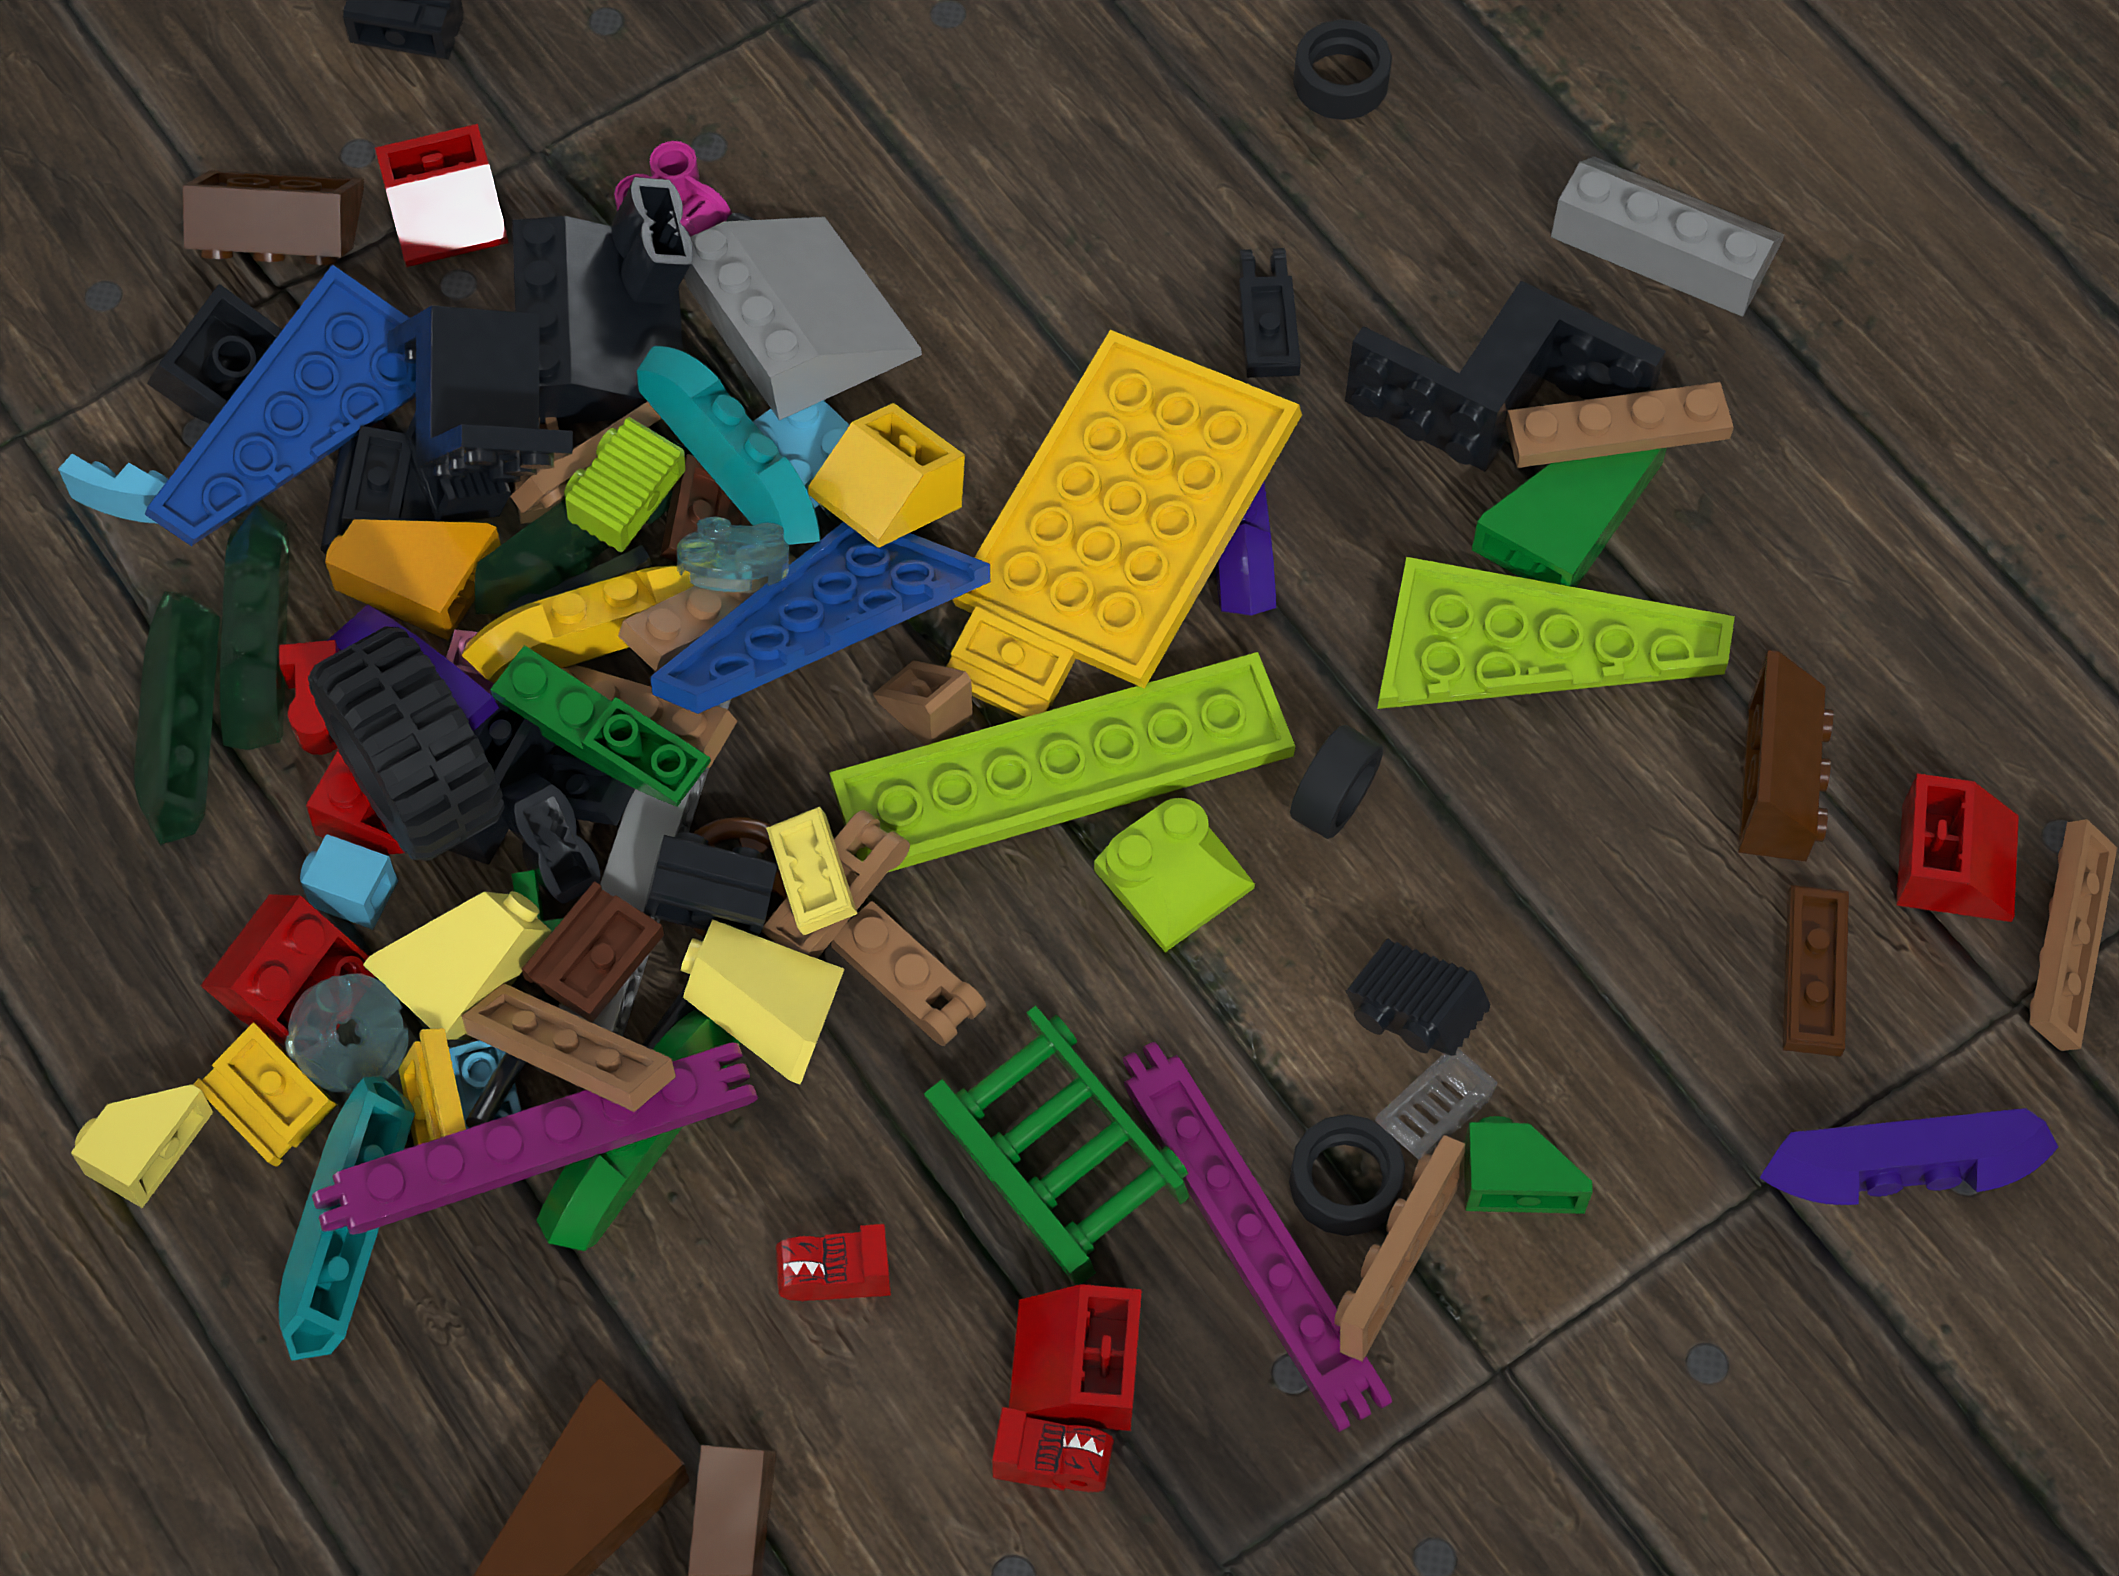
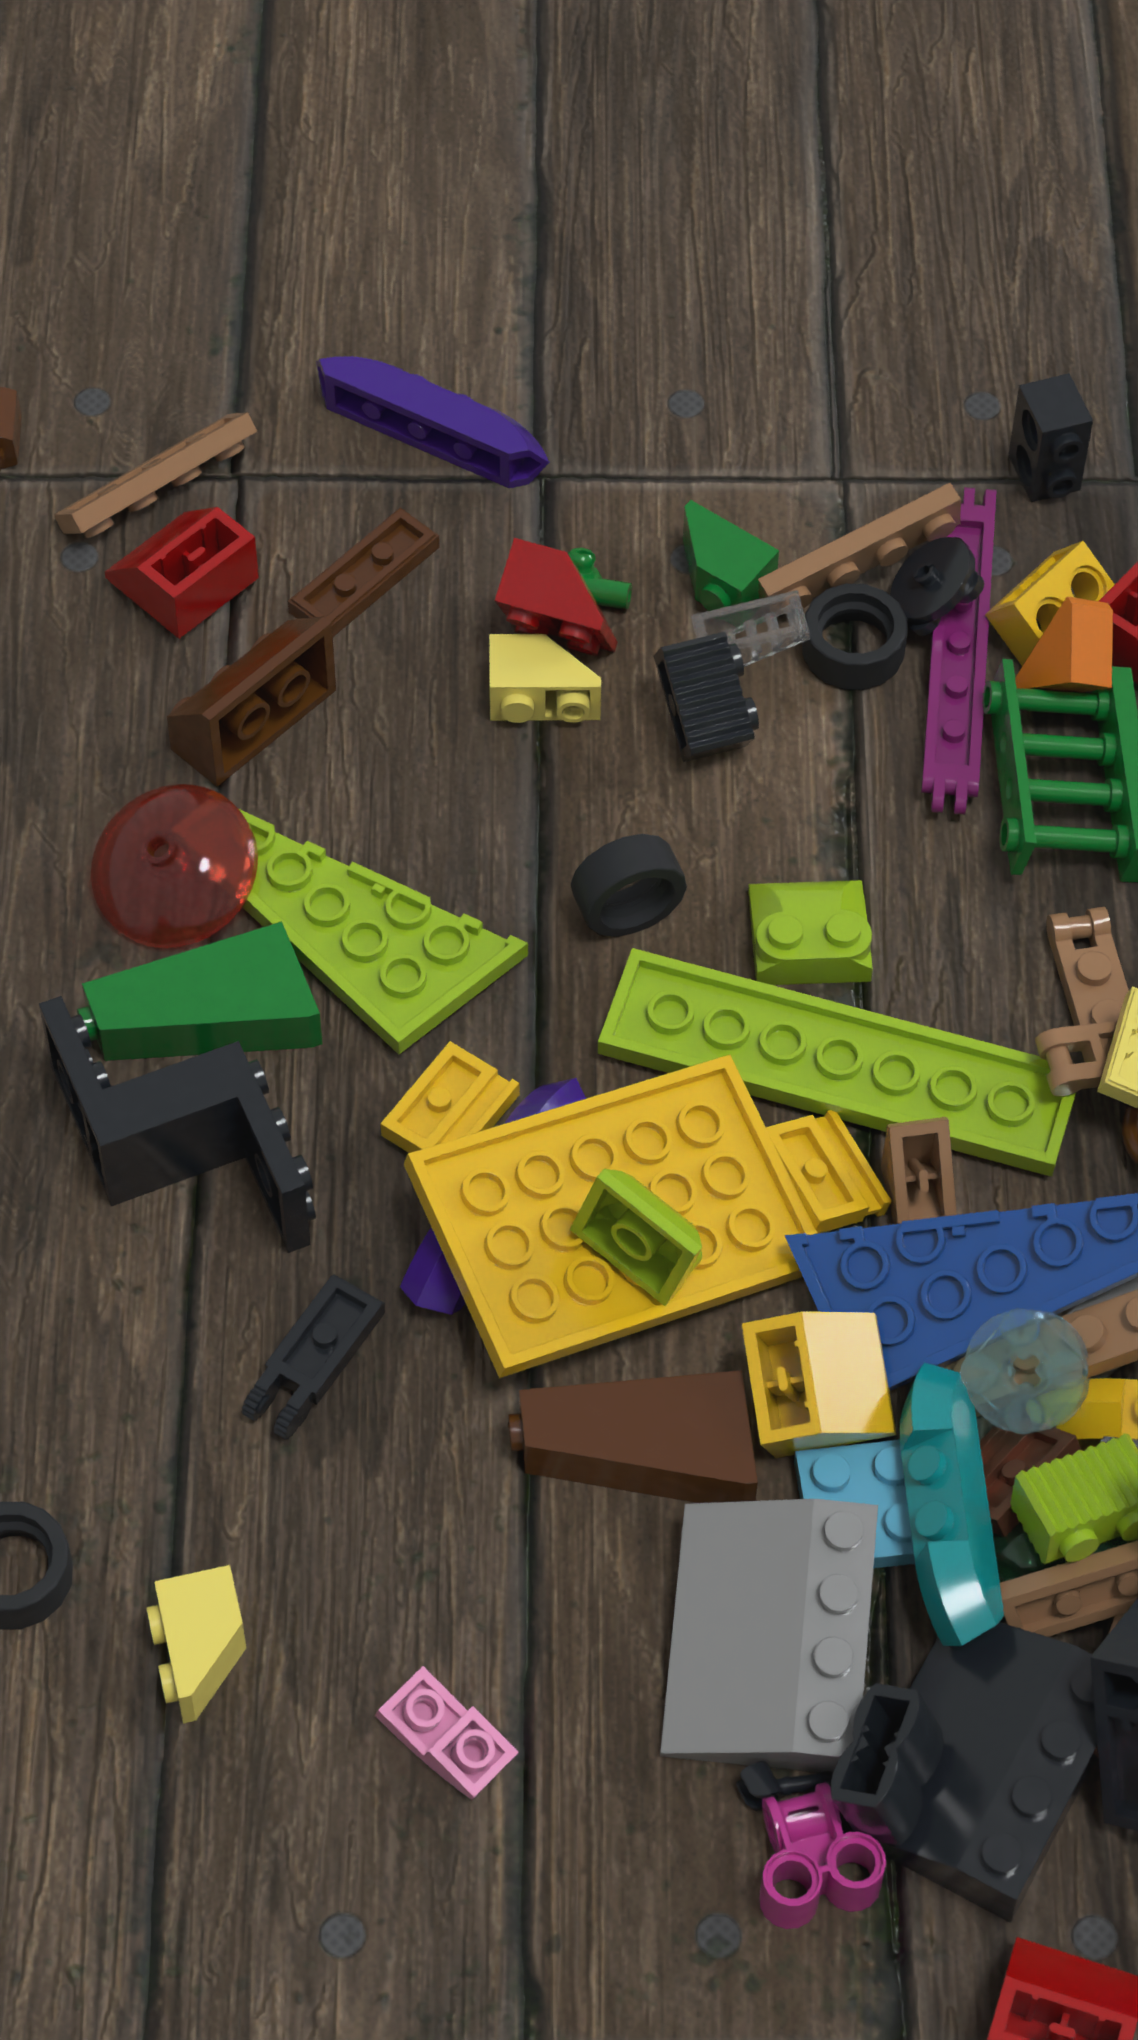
camera: 145 degrees left, 5 degrees down
(963, 146) = (445, 1734): none -> bright pink slope
(995, 385) = (642, 1436): none -> reddish brown slope
(1082, 451) = (638, 1234): none -> lime slope
(1121, 1232) = (1073, 650): none -> orange slope
(1183, 96) = (203, 1636): none -> light yellow slope
(1191, 1312) = (1044, 593): none -> yellow brick
(1311, 1257) = (935, 582): none -> black piece
(1320, 1493) = (1050, 437): none -> black brick
(1326, 540) = (449, 1101): none -> yellow plate
(1577, 944) = (539, 681): none -> light yellow slope
(1613, 1000) = (548, 595): none -> red slope
(1617, 1083) = (605, 591): none -> green arm
(1619, 424) = (118, 1004): medium nougat plate -> none
(1705, 590) = (190, 887): none -> clear red dish

